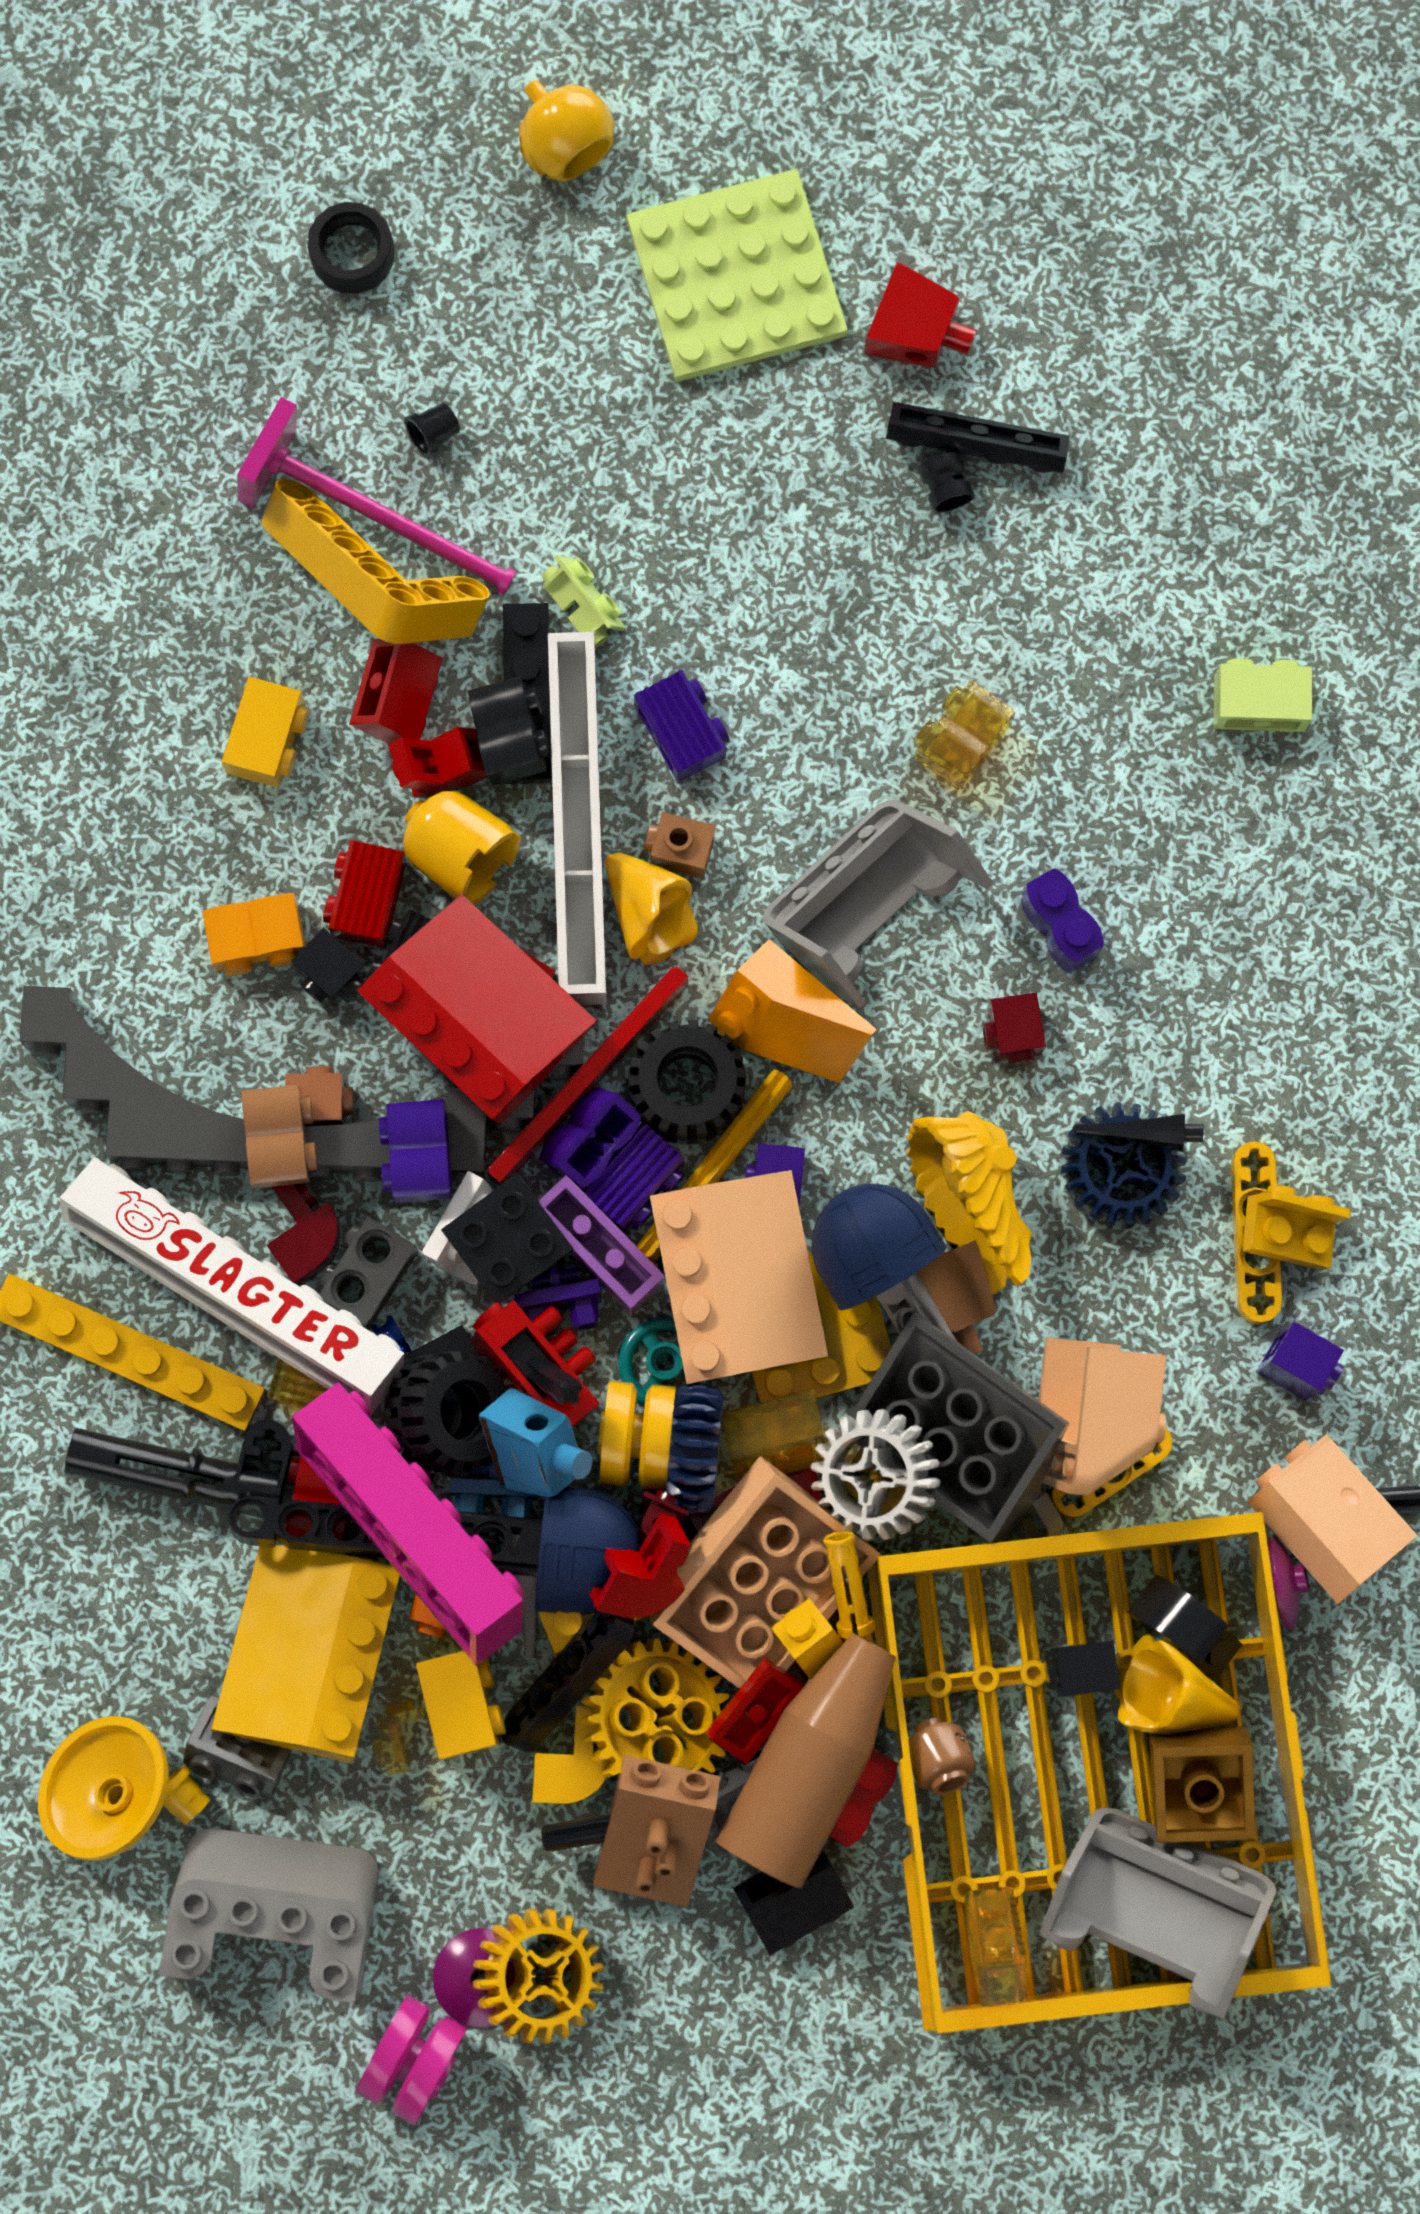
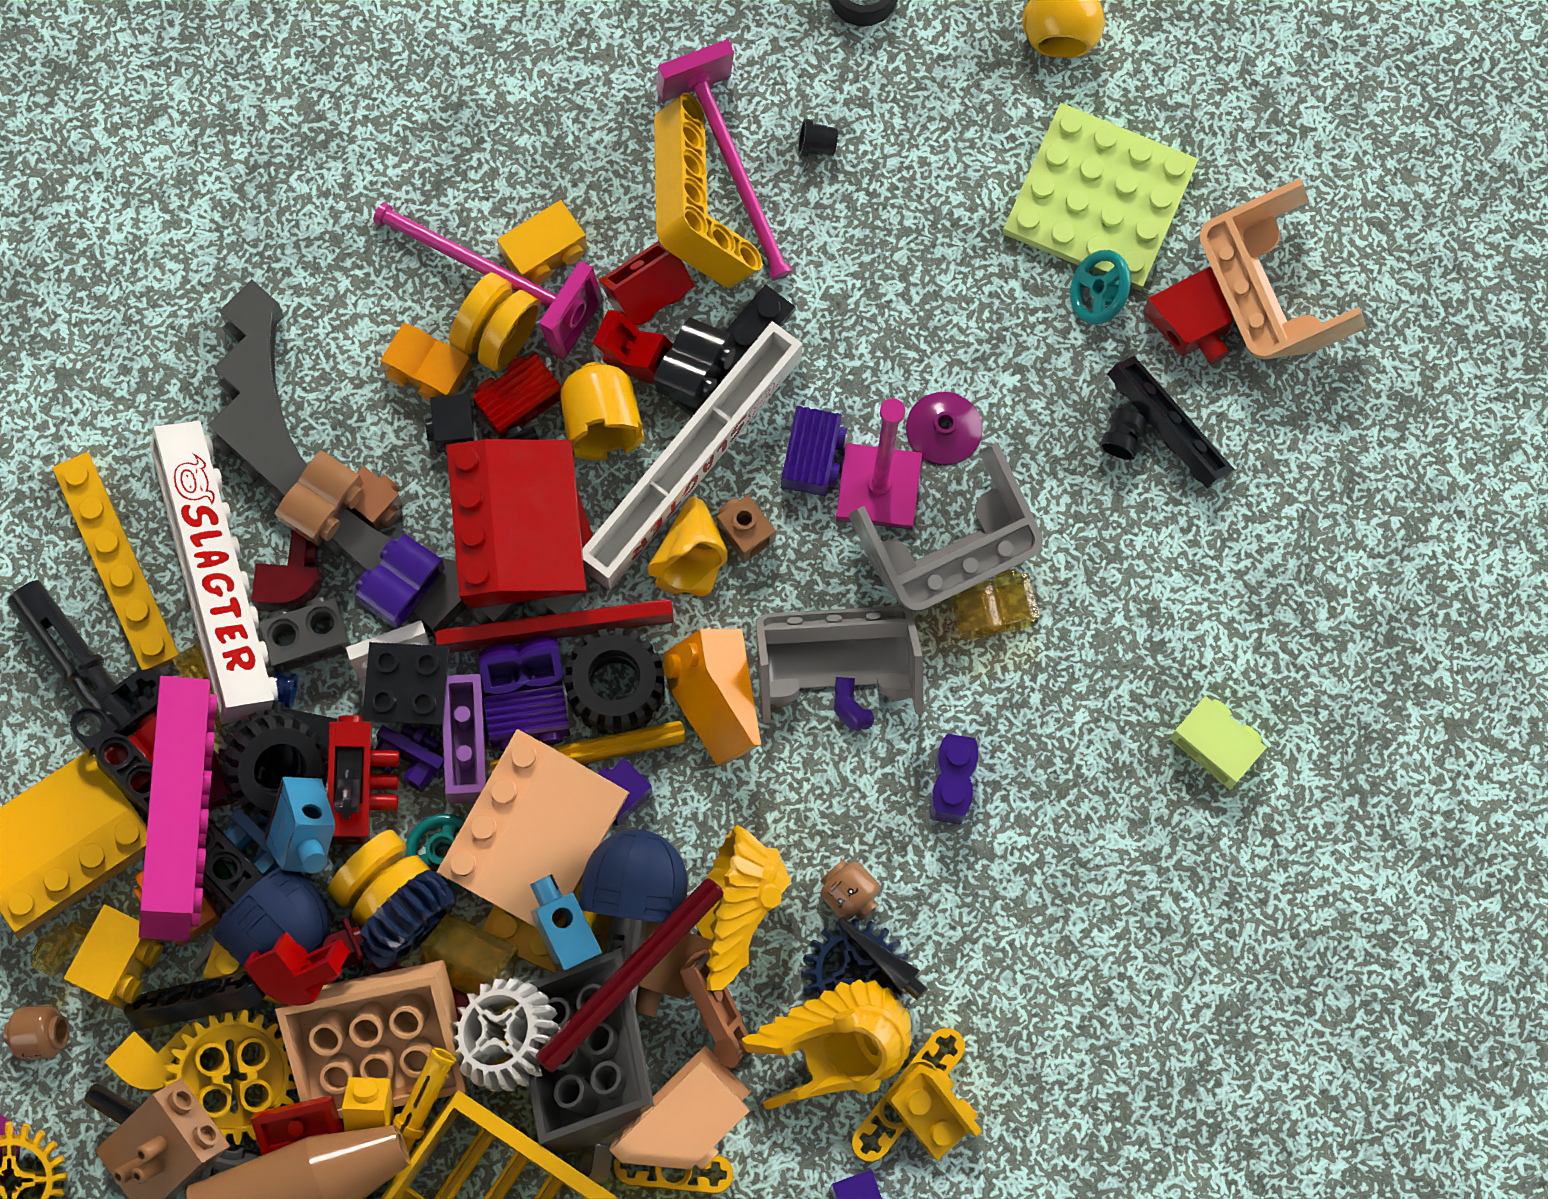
camera: 40 degrees right, 5 degrees down
(283, 842) = (494, 322): none -> yellow wheel
(346, 774) = (566, 313): none -> dark pink tile
(443, 1830) = (36, 1032): none -> medium nougat head
(573, 584) = (822, 306): yellowish green hinge -> none
(767, 702) = (881, 476): none -> dark pink tile
(778, 628) = (939, 444): none -> magenta dish
(821, 358) = (1106, 290): none -> teal piece
(860, 1341) = (575, 939): none -> dark azure torso
(900, 230) = (1233, 248): none -> light nougat windscreen
(910, 934) = (848, 709): none -> dark purple arm
(925, 674) = (1005, 540): none -> light grey windscreen
(946, 1328) = (629, 975): none -> dark red axle
(1014, 1029) = (860, 824): dark red brick -> none
(1033, 1298) = (716, 1010): none -> nougat hinge
(1056, 1095) = (850, 890): none -> medium nougat head
(1173, 1227) = (847, 1039): none -> yellow piece

